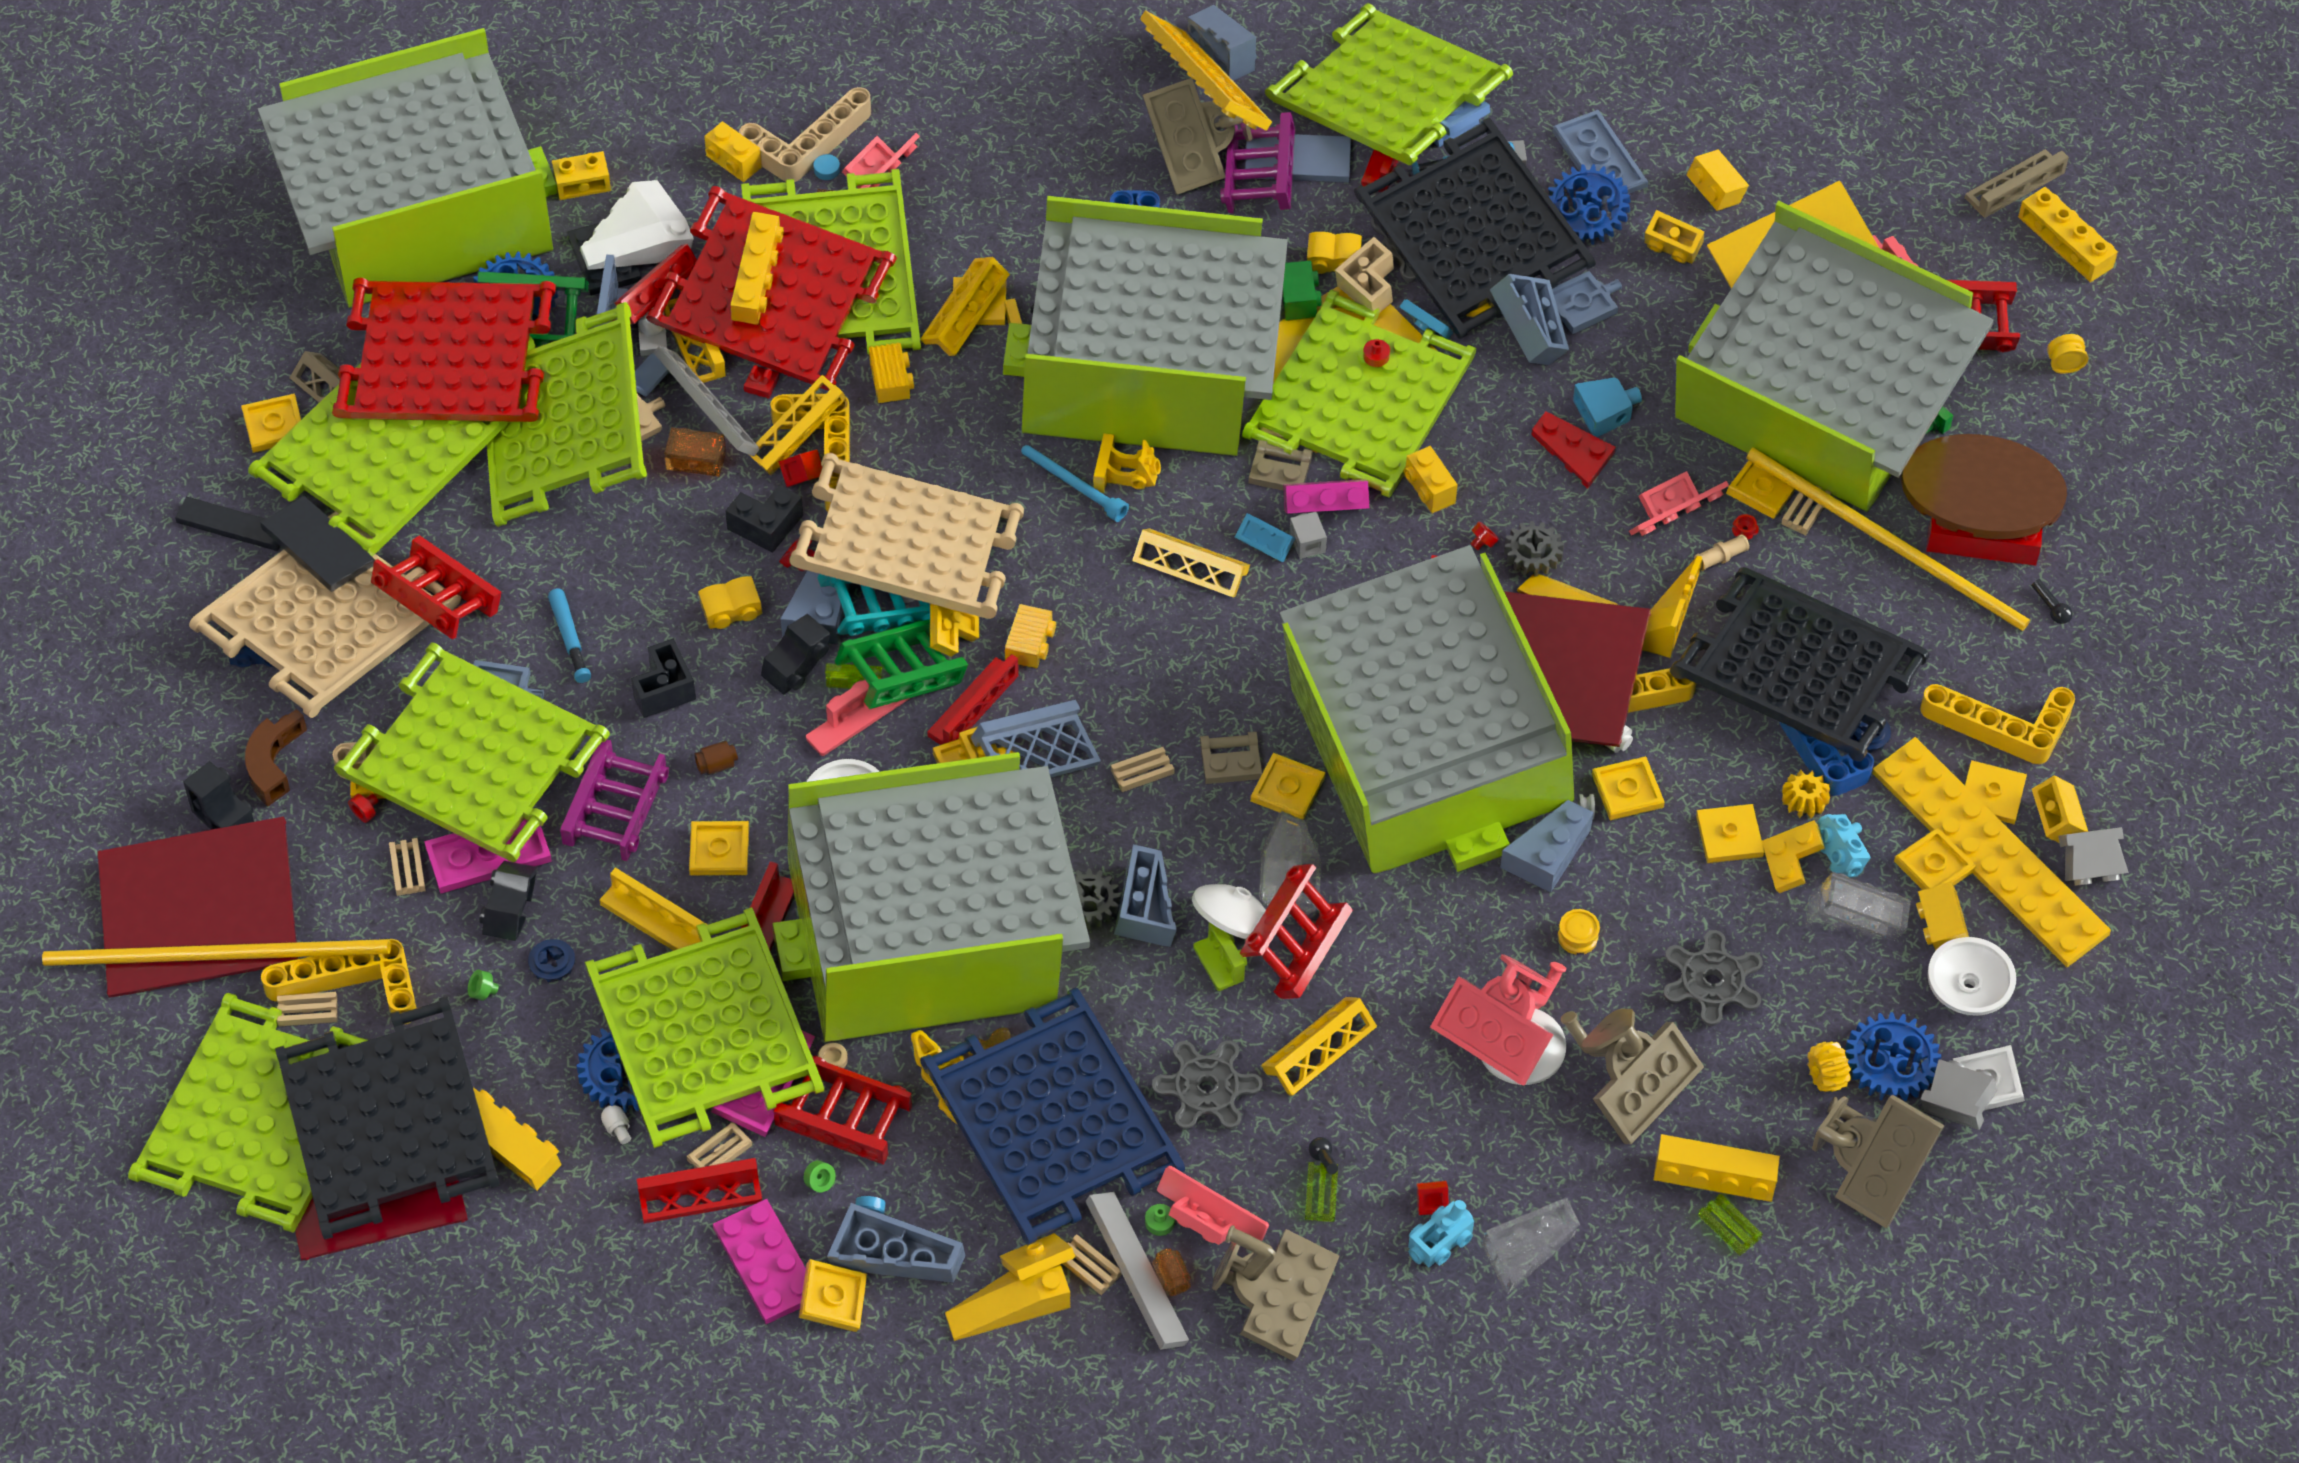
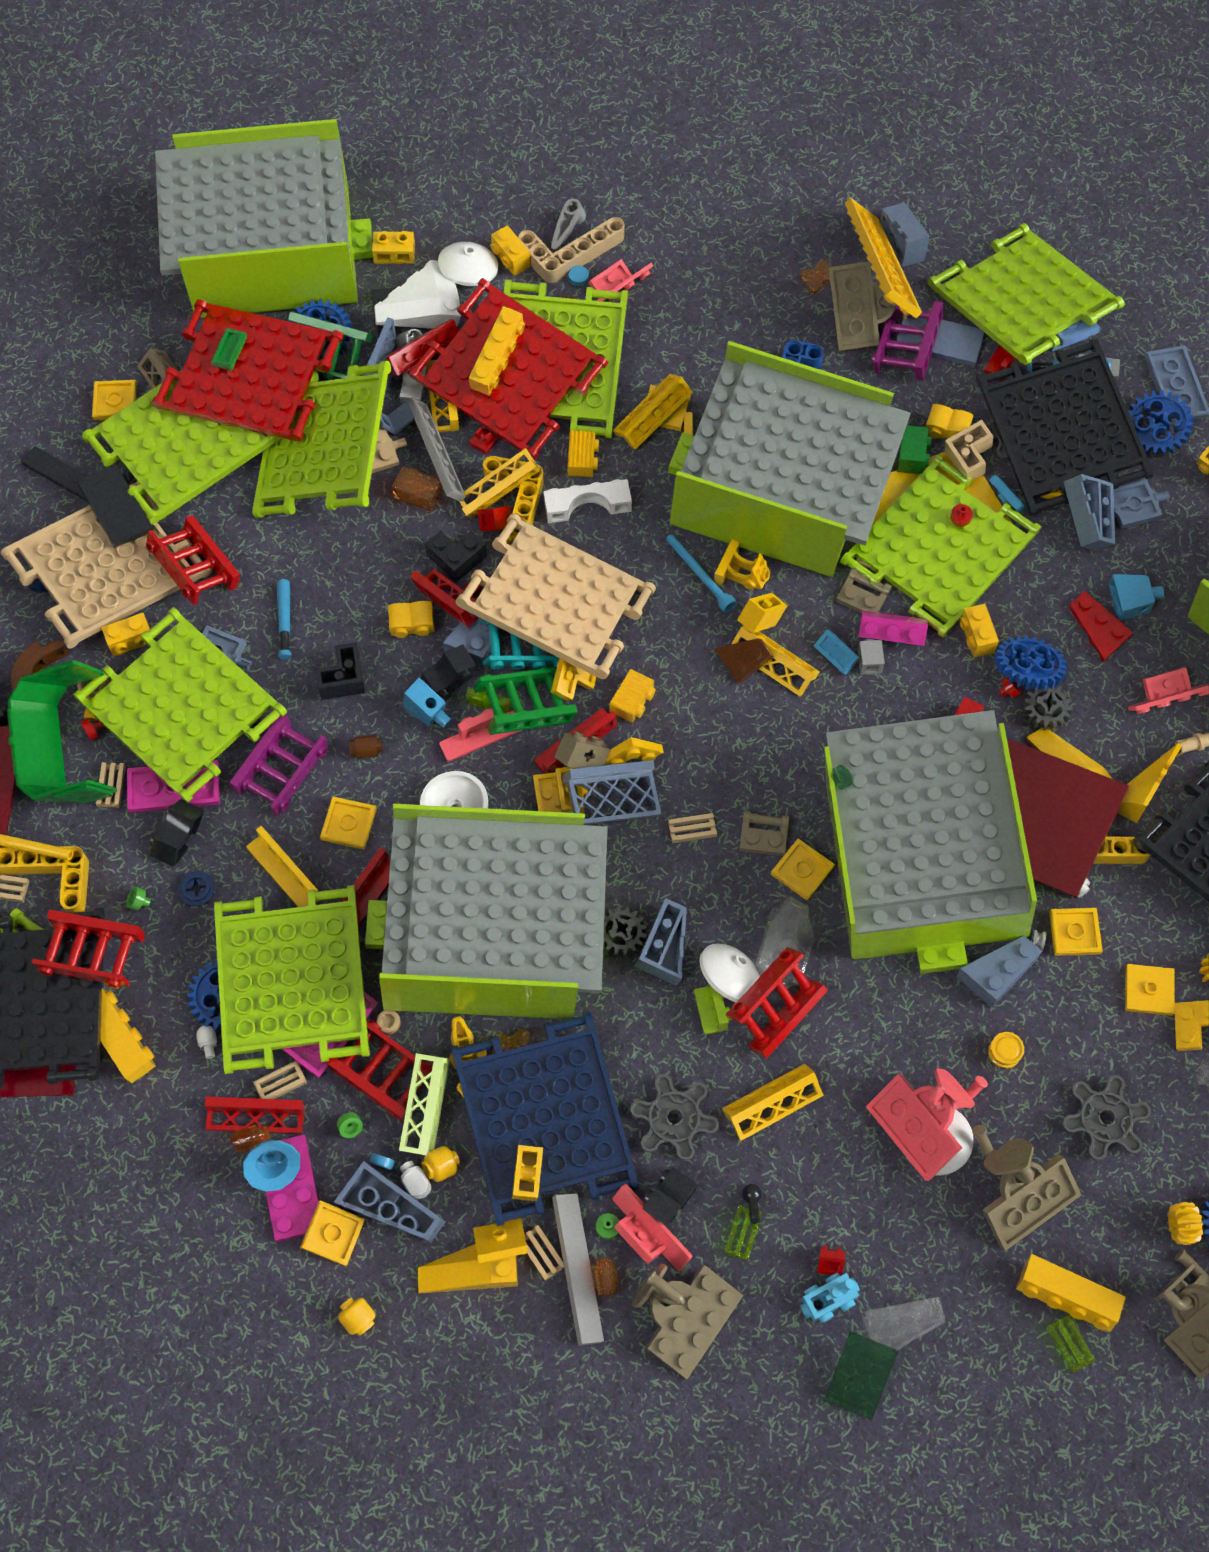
camera: 15 degrees right, 10 degrees up
(301, 822) = (37, 736): none -> green piece
(376, 690) = (125, 634): none -> yellow brick
(416, 328) = (229, 349): none -> green tile
(442, 1013) = (83, 926): none -> red fence
(630, 278) = (406, 337): none -> light grey wheel
(681, 177) = (467, 263): none -> white dish
(701, 1215) = (249, 1138): none -> clear orange arm
(747, 1234) = (271, 1165): none -> dark azure hat
(761, 567) = (444, 600): none -> red fence
(778, 694) = (425, 704): none -> dark azure torso
(798, 96) = (571, 215): none -> light grey piece
(888, 1376) = (356, 1316): none -> yellow head
(915, 1214) = (415, 1180): none -> white arm
(917, 1131) = (433, 1105): none -> yellowish green fence
(941, 414) = (612, 495): none -> white arch
(941, 1194) = (440, 1164): none -> yellow head
(983, 704) = (581, 752): none -> dark tan brick
(1046, 691) = (634, 749): none -> yellow plate
(1051, 1170) = (527, 1173): none -> yellow brick
(1129, 112) = (816, 277): none -> clear orange animal
(1155, 565) = (744, 657): none -> reddish brown wing
(1163, 509) = (762, 612): none -> yellow brick
(1225, 1165) = (669, 1196): none -> black brick
(1311, 653) = (841, 777): none -> clear green tile
(1497, 1302) = (860, 1375): none -> clear green tile
(1501, 502) = (1029, 668): none -> blue gear

